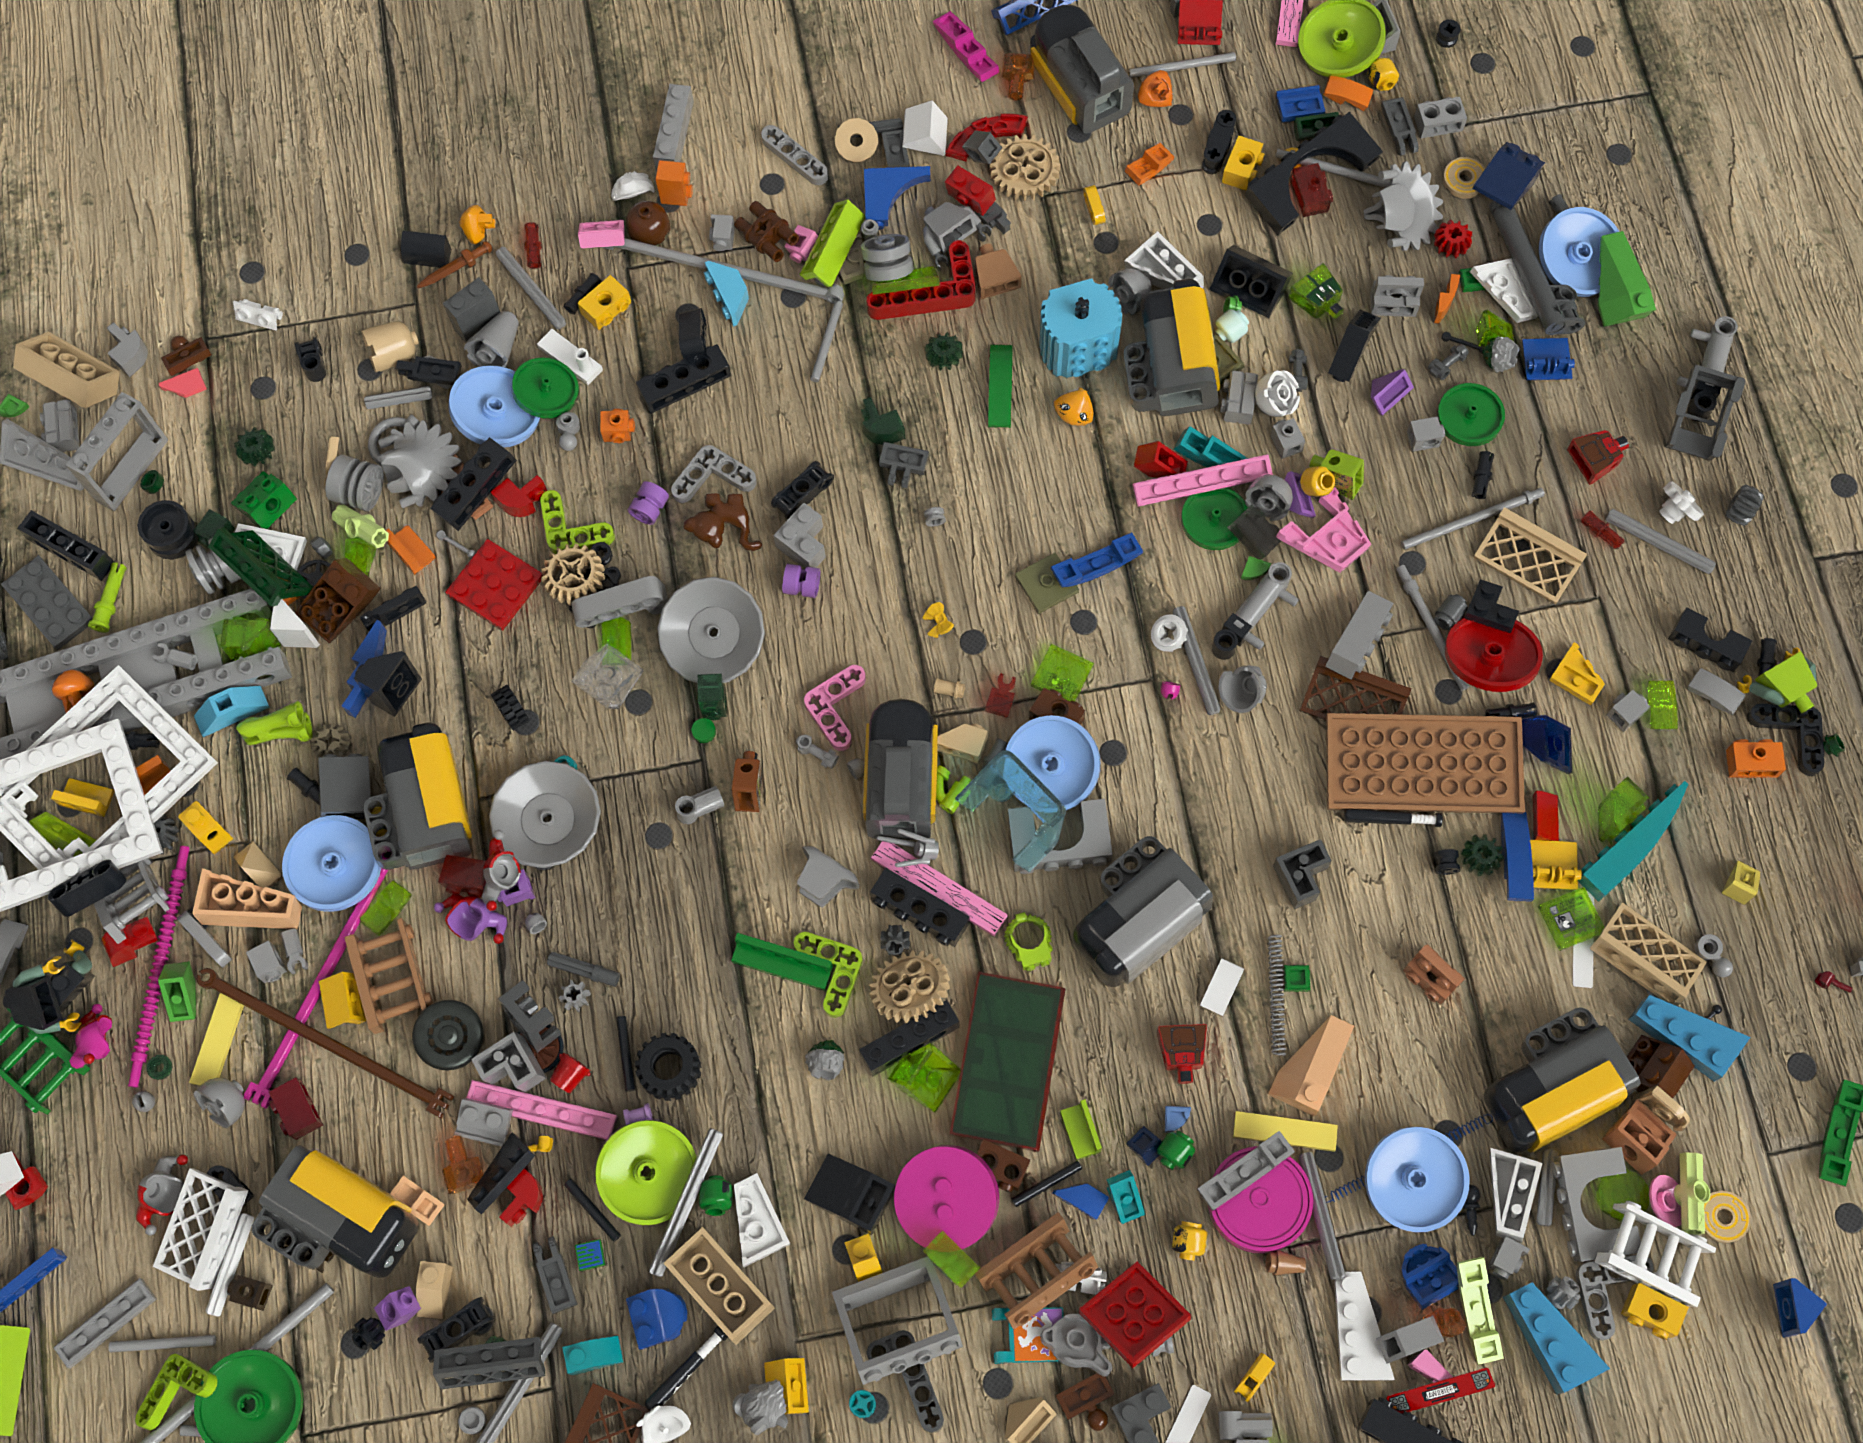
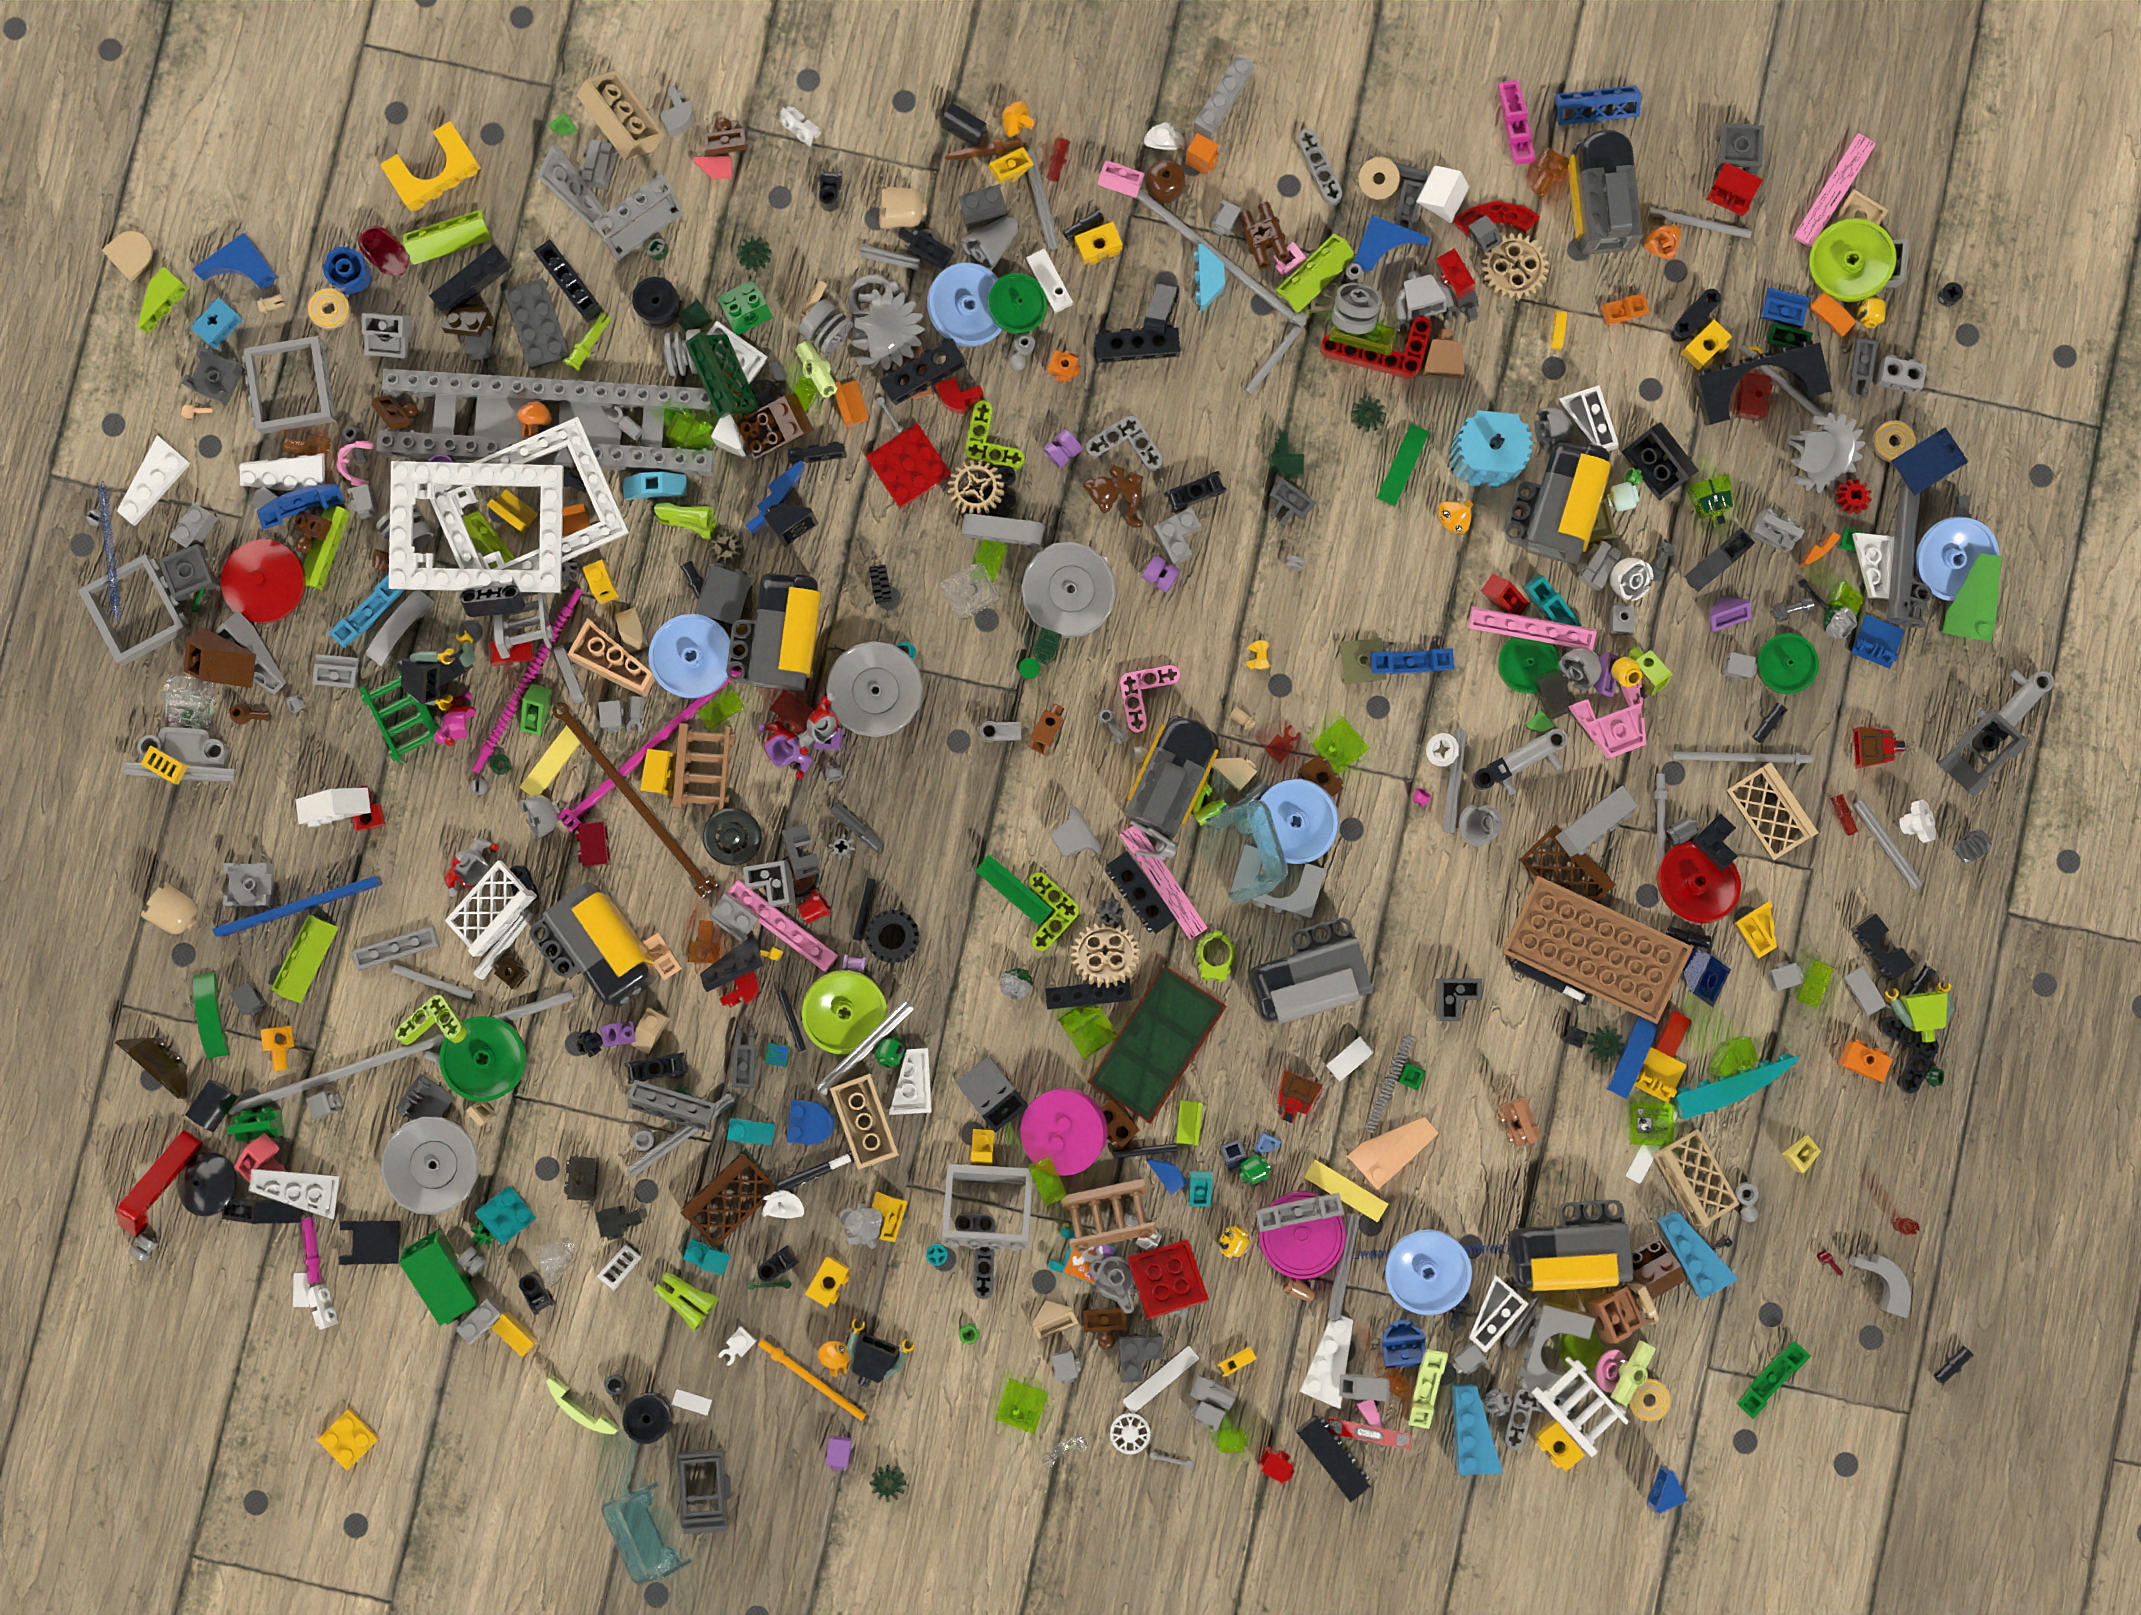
camera: 20 degrees right, 15 degrees up
(487, 265) = (1011, 166): none -> yellow slope

